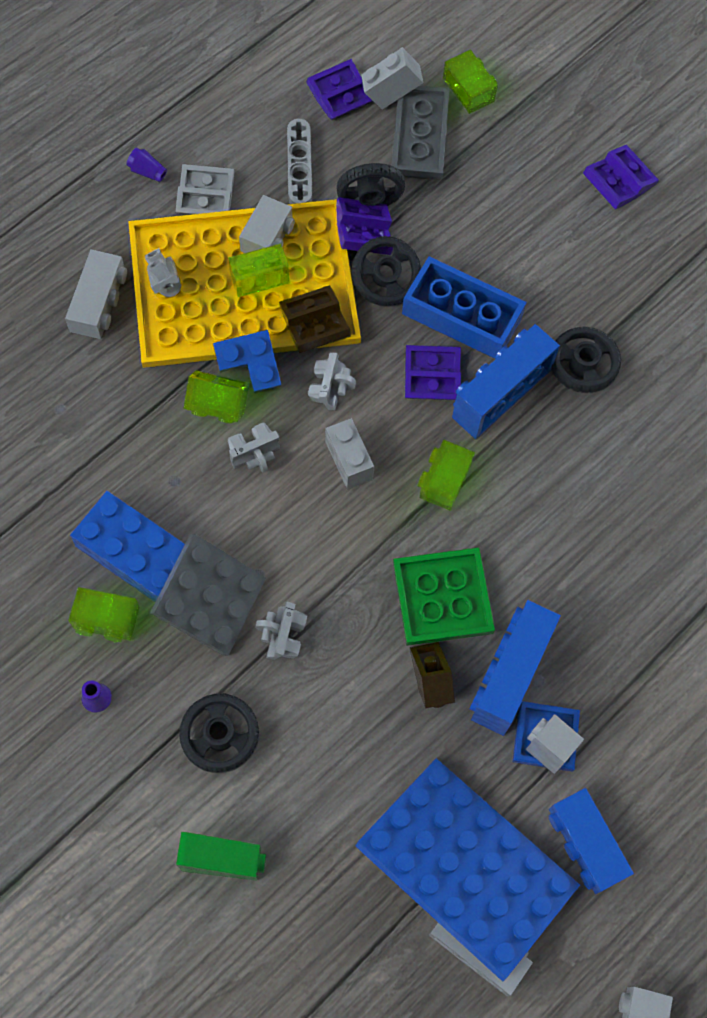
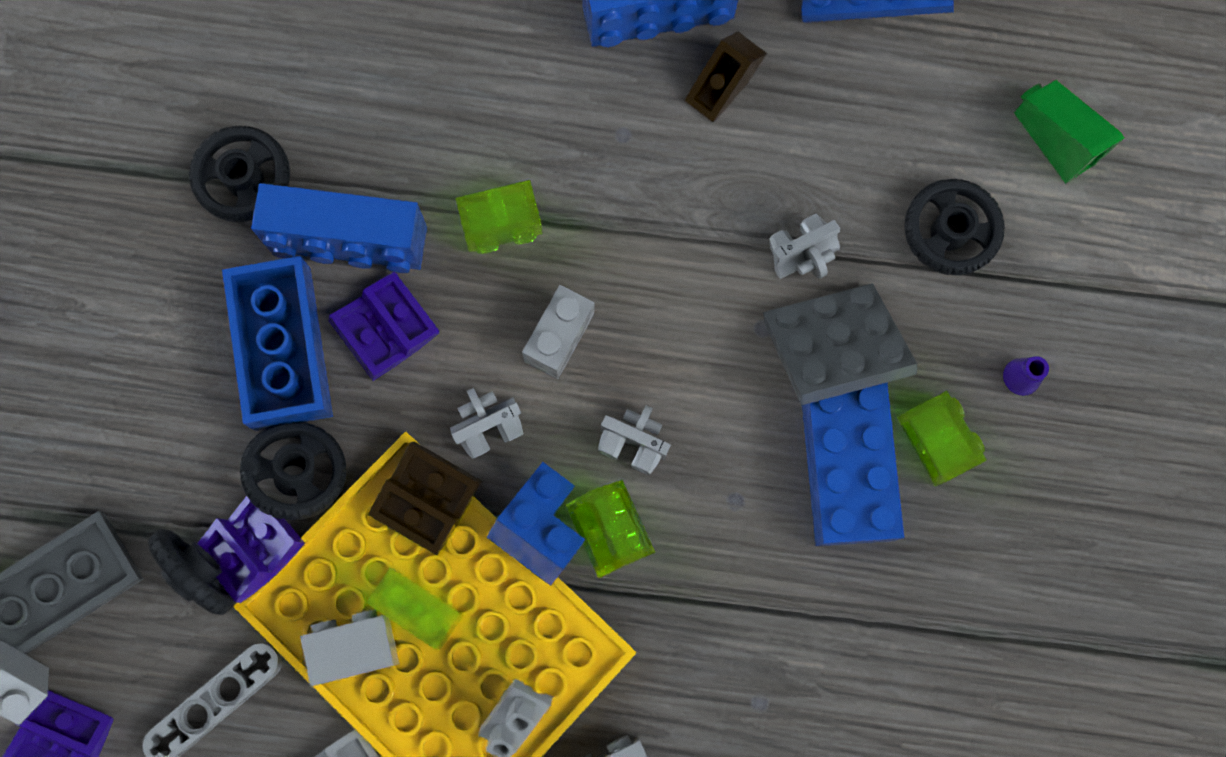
camera: 130 degrees left, 10 degrees up
(443, 596) = (635, 125): green plate -> none

